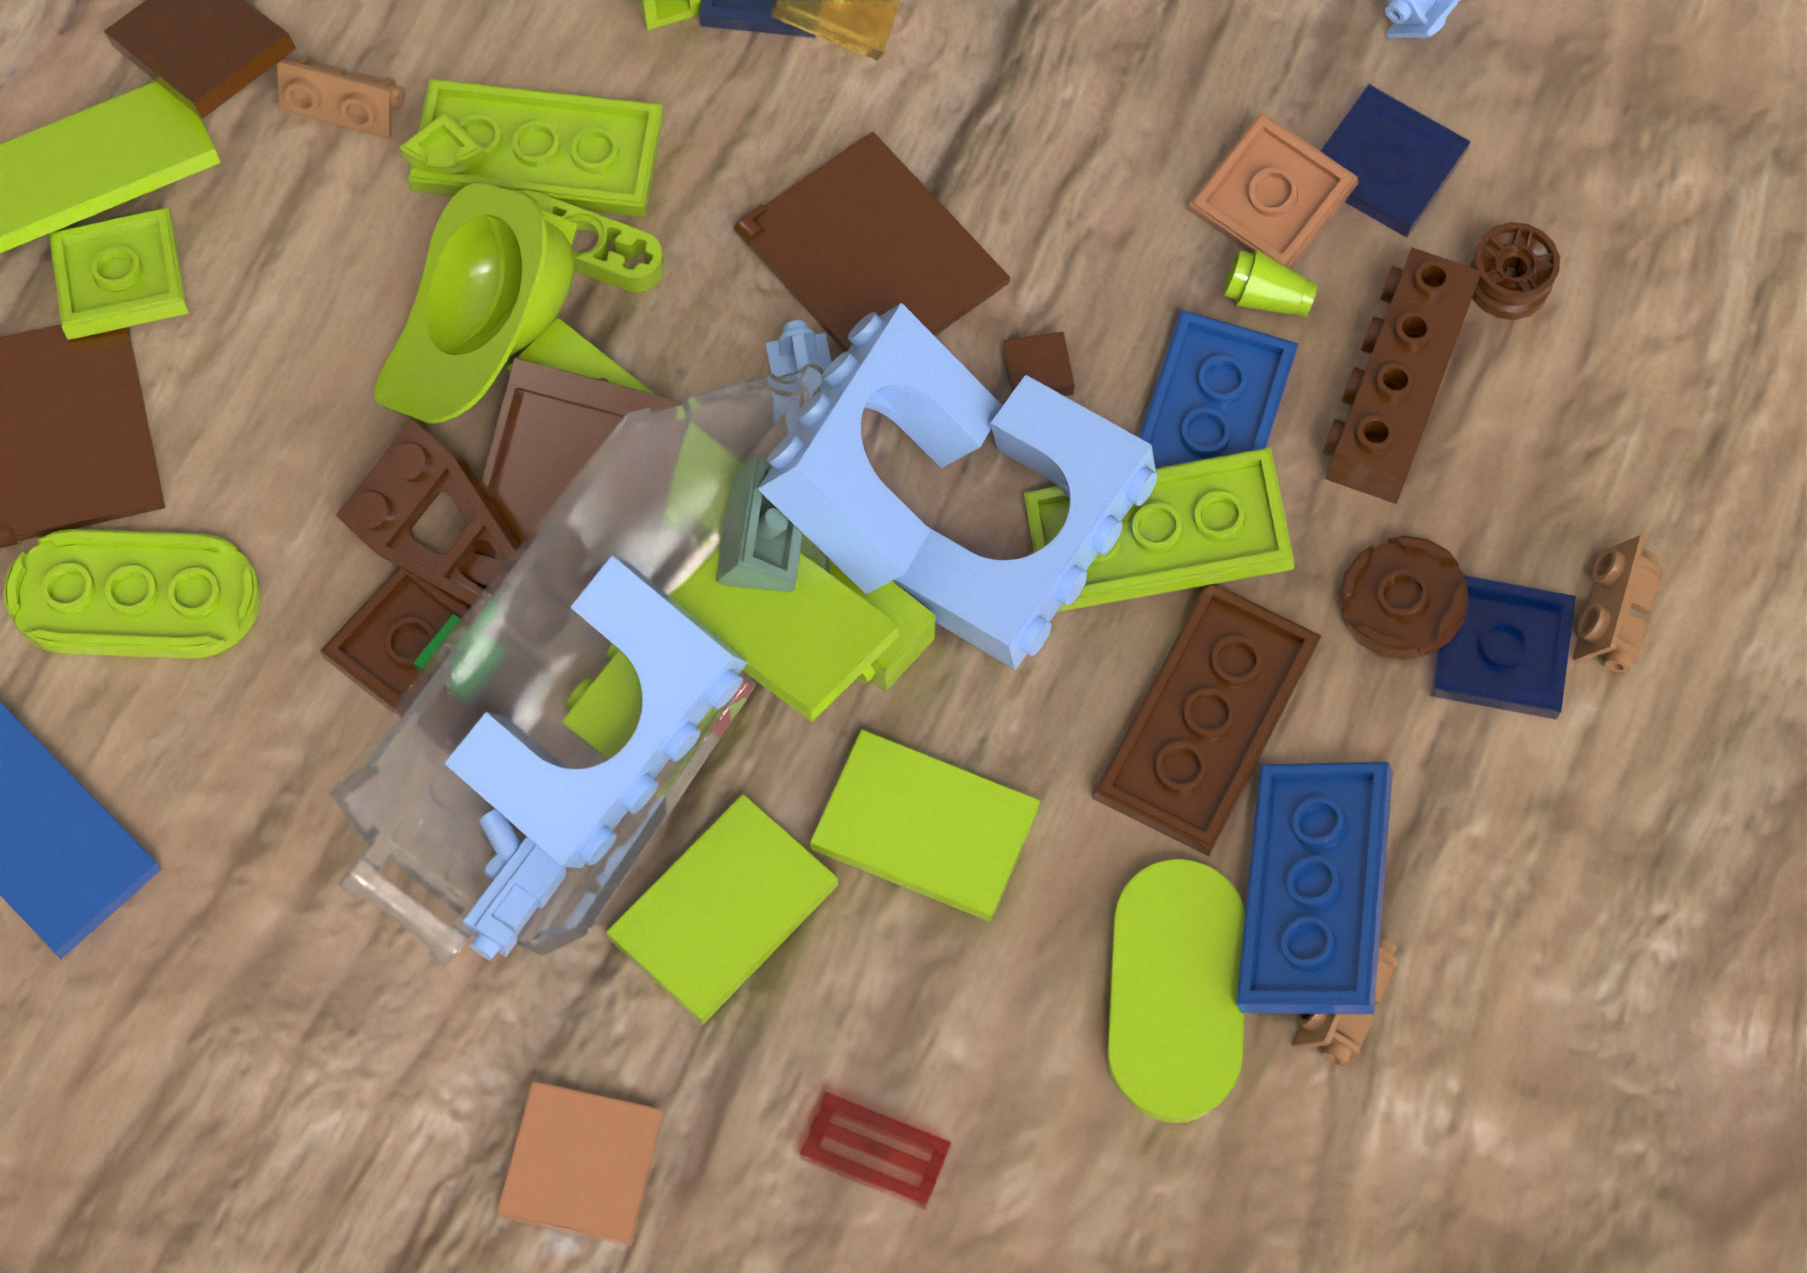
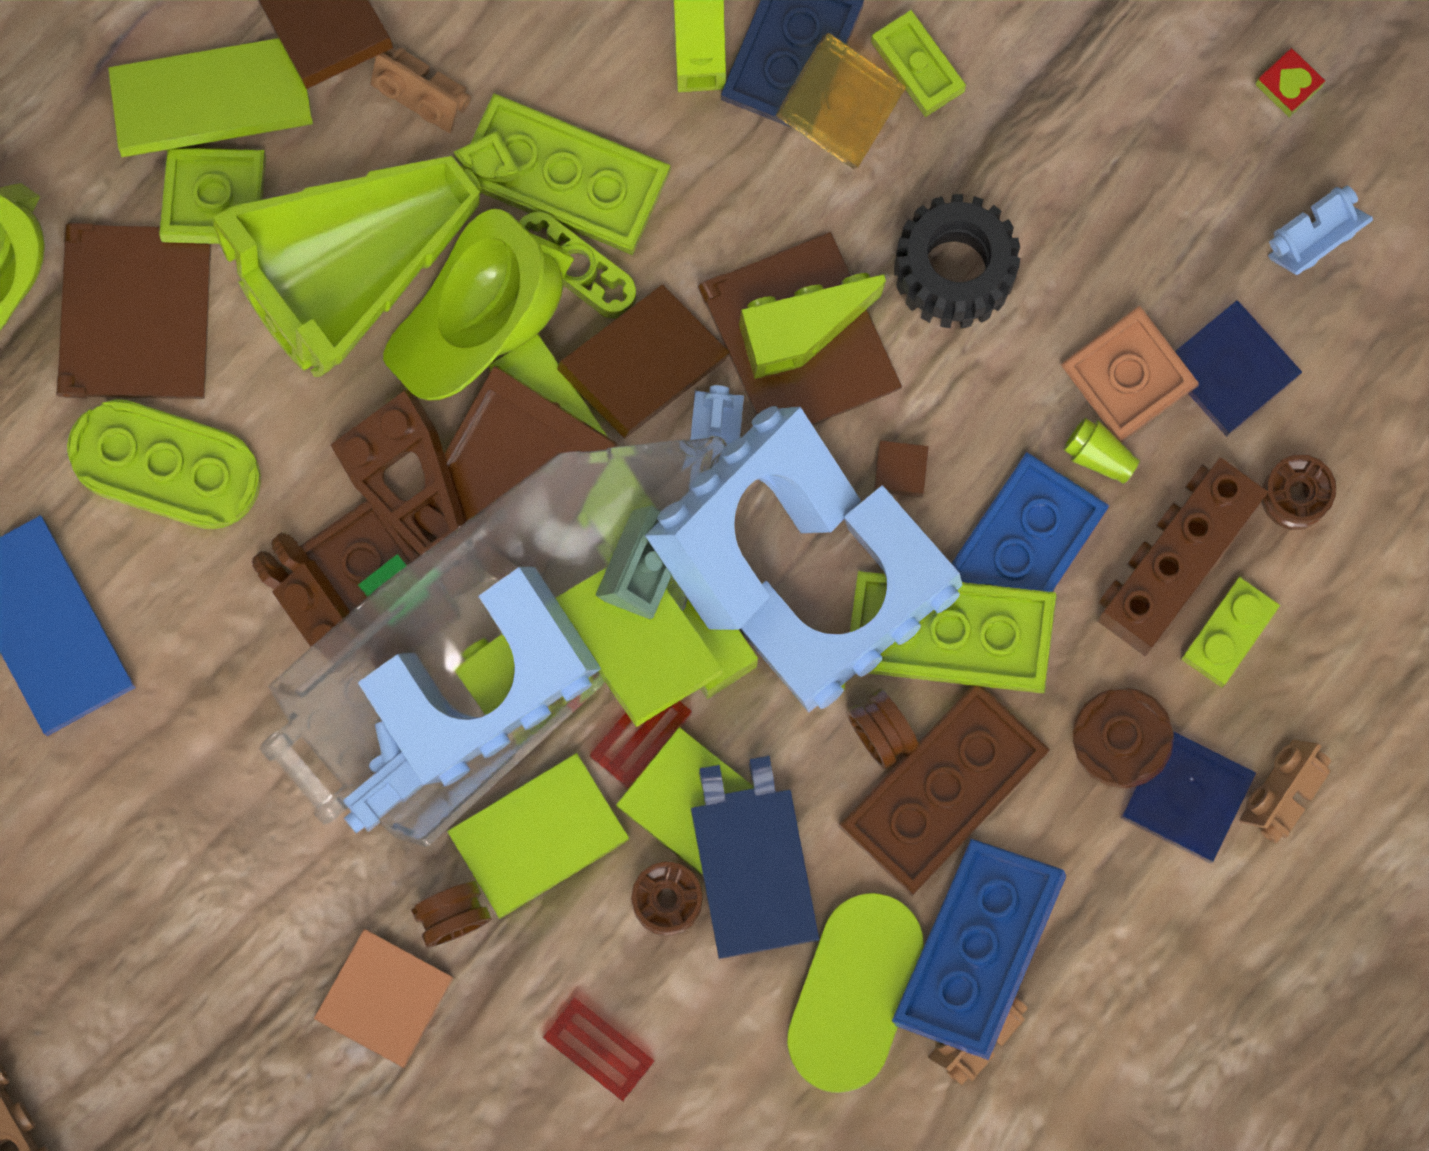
camera: 15 degrees right, 10 degrees up
(290, 287) = (343, 252): none -> lime cone
(350, 693) = (305, 592): none -> reddish brown hinge
(640, 1028) = (451, 914): none -> reddish brown wheel
(693, 319) = (643, 361): none -> reddish brown tile
(794, 801) = (613, 767): none -> clear red tile
(867, 236) = (794, 329): none -> lime slope
(922, 916) = (649, 887): none -> reddish brown wheel
(1002, 864) = (753, 865): none -> dark blue tile
(1041, 79) = (964, 224): none -> black tyre
(1112, 660) = (882, 728): none -> reddish brown wheel
(1488, 448) = (1230, 632): none -> lime plate

